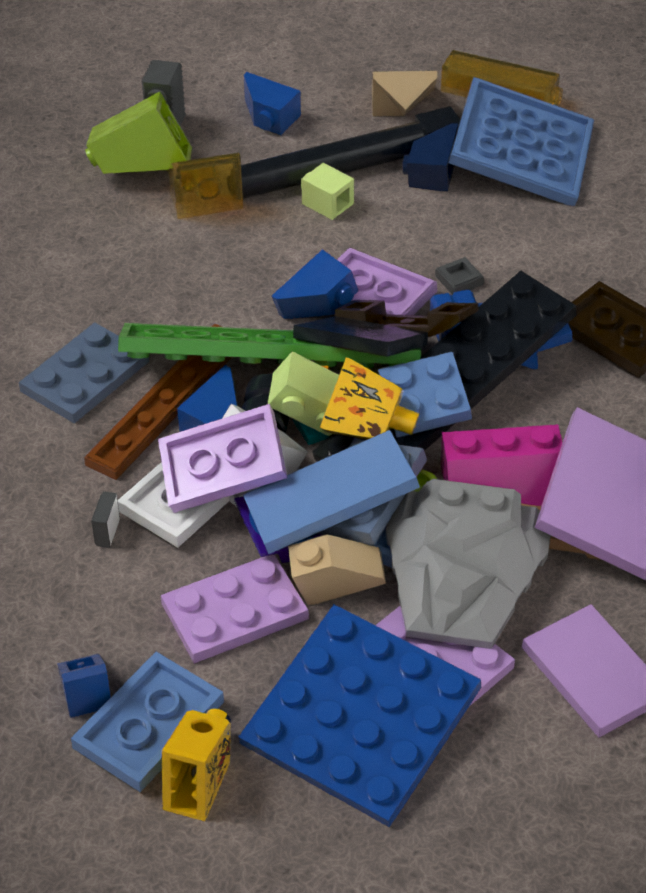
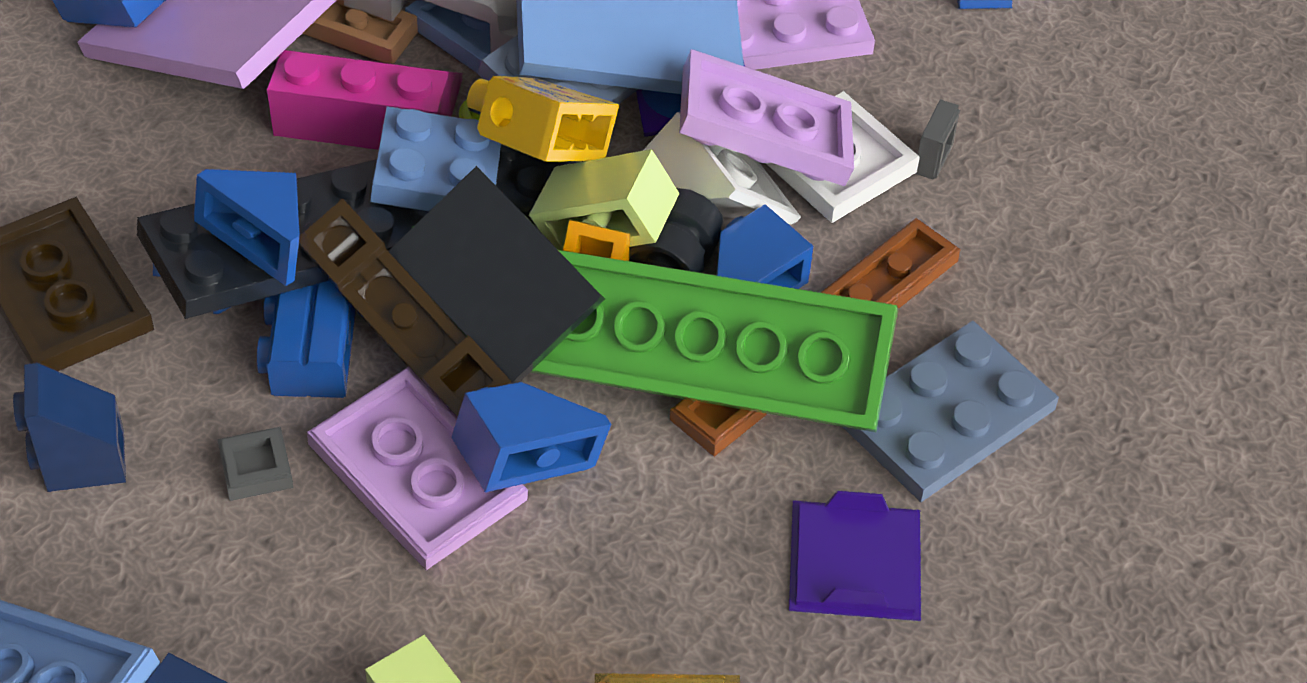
camera: 170 degrees left, 5 degrees up
(127, 296) = (855, 558): none -> dark purple piece
(503, 296) = (253, 216): none -> blue slope
(553, 243) = (70, 430): none -> dark blue slope

